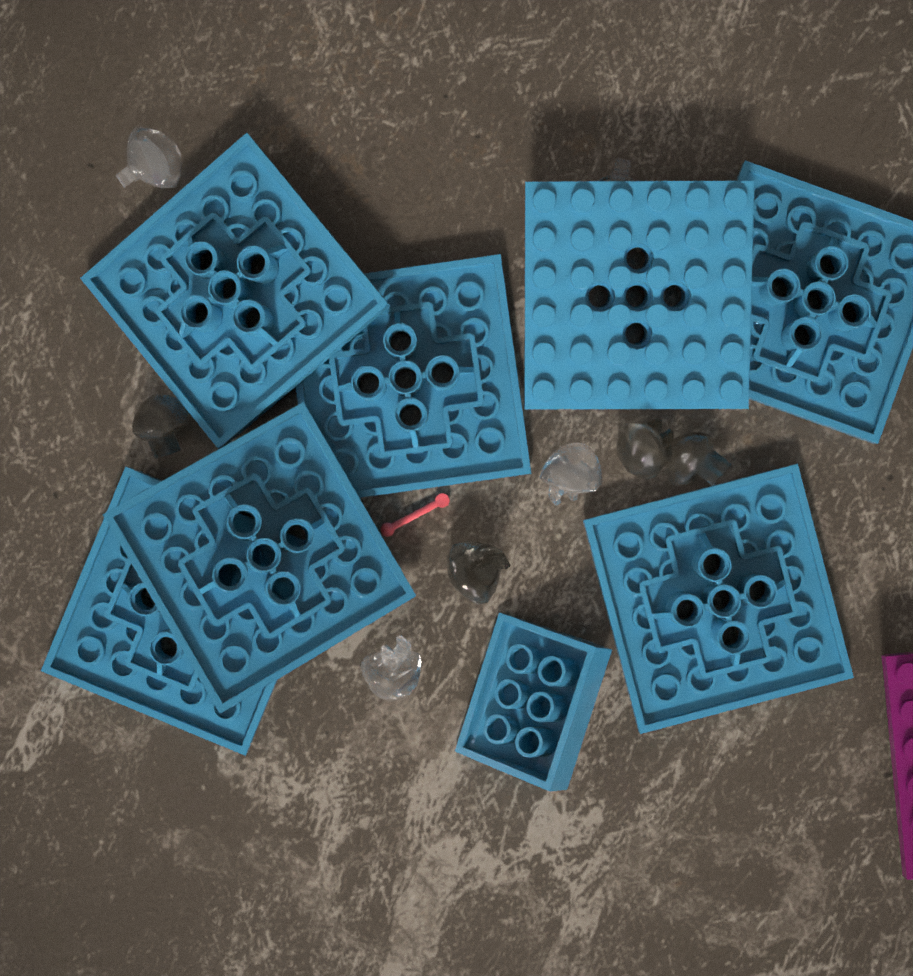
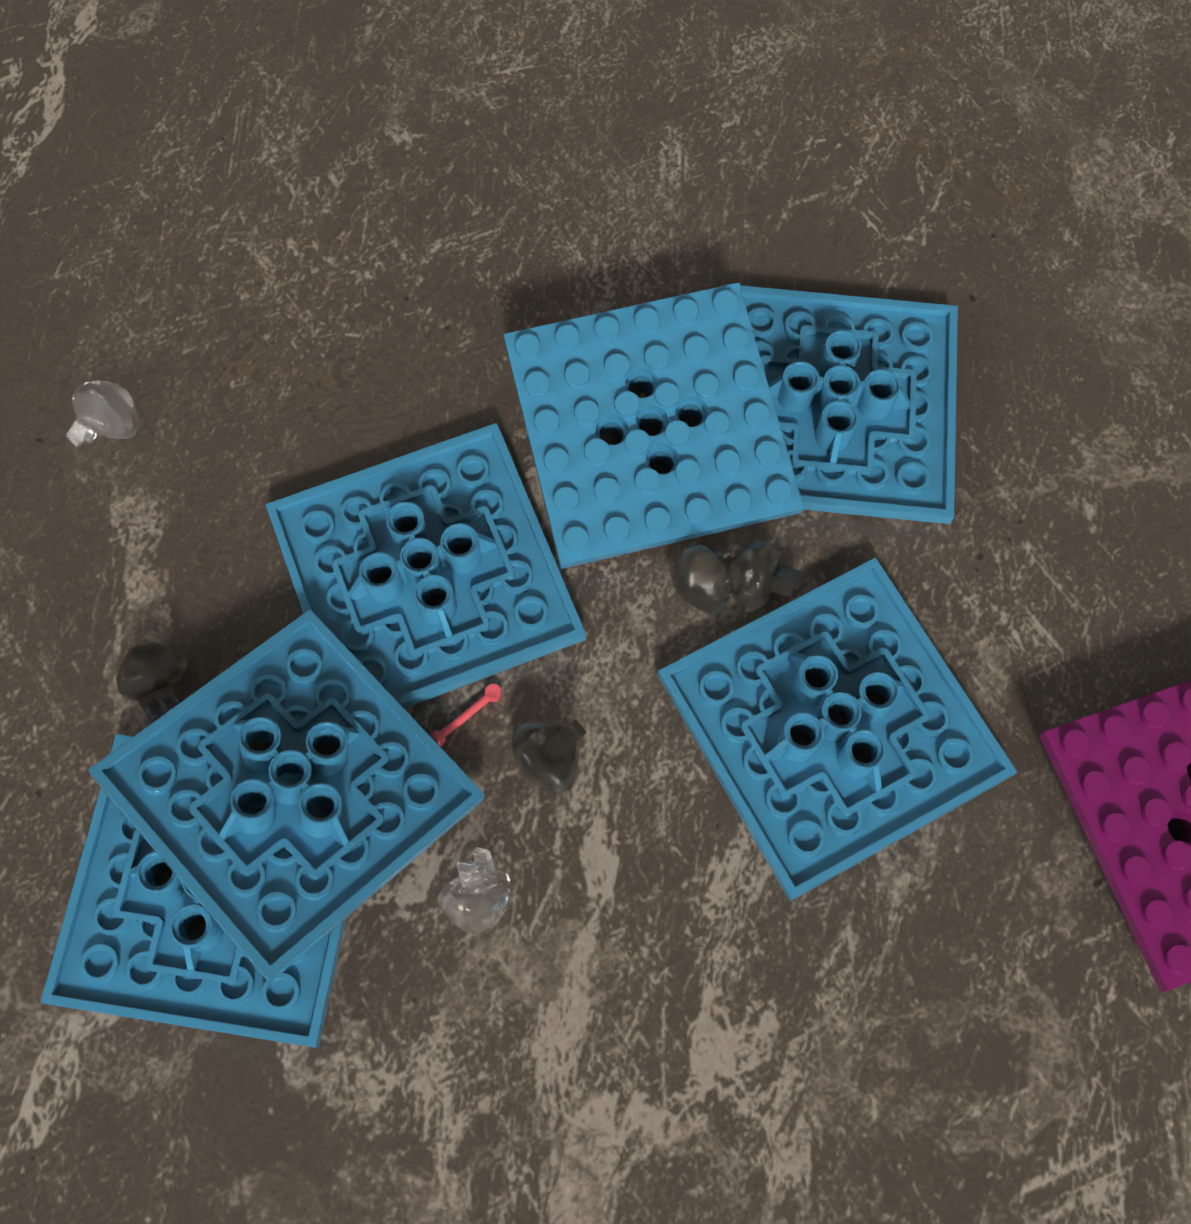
camera: 15 degrees left, 20 degrees down
(306, 295) = (214, 591): dark azure plate -> none
(533, 702) = (655, 893): dark azure slope -> none
(571, 471) = (629, 619): clear piece -> none

